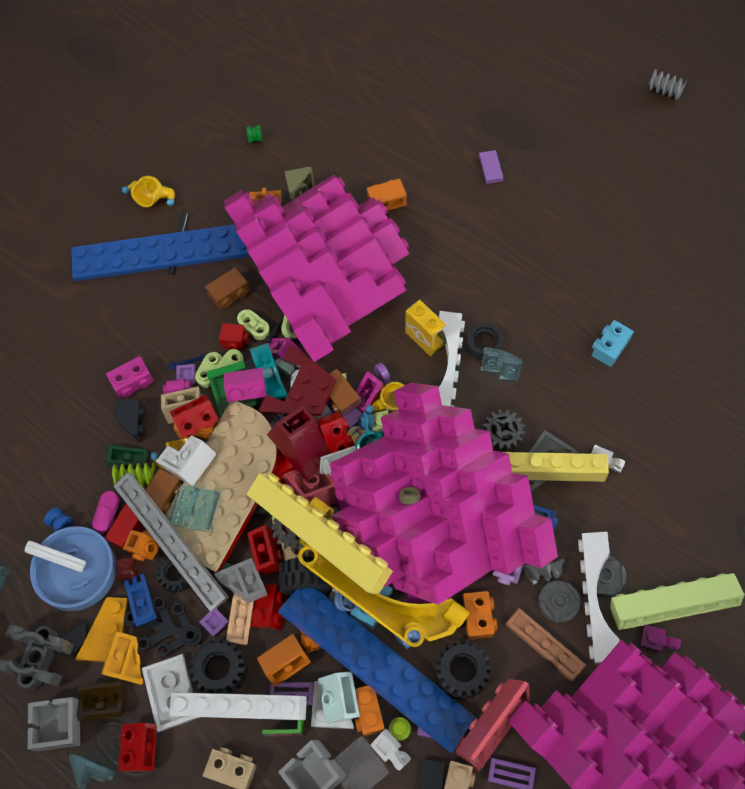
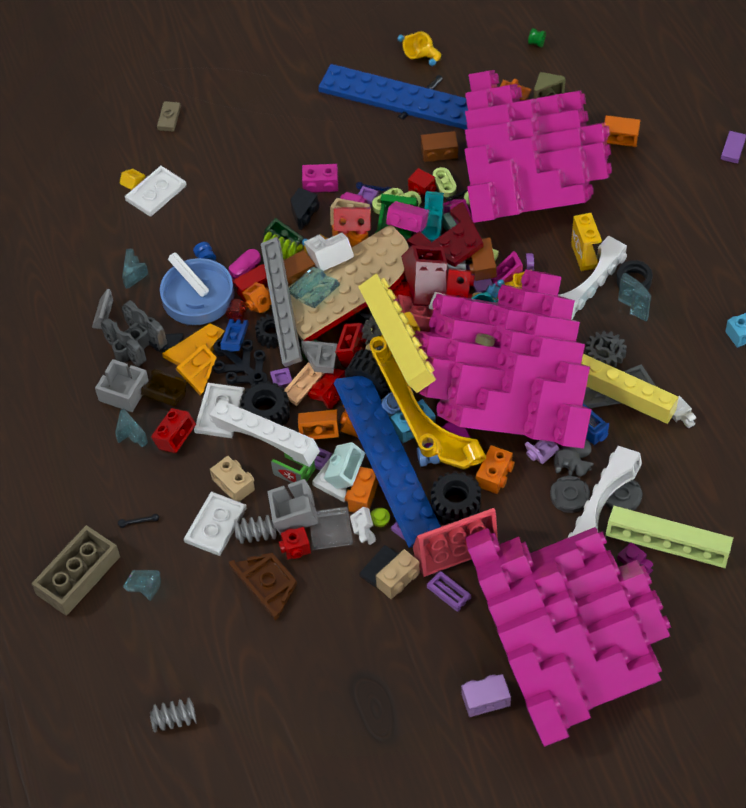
camera: 30 degrees right, 10 degrees down
(545, 644) = (536, 514): nougat tile -> none

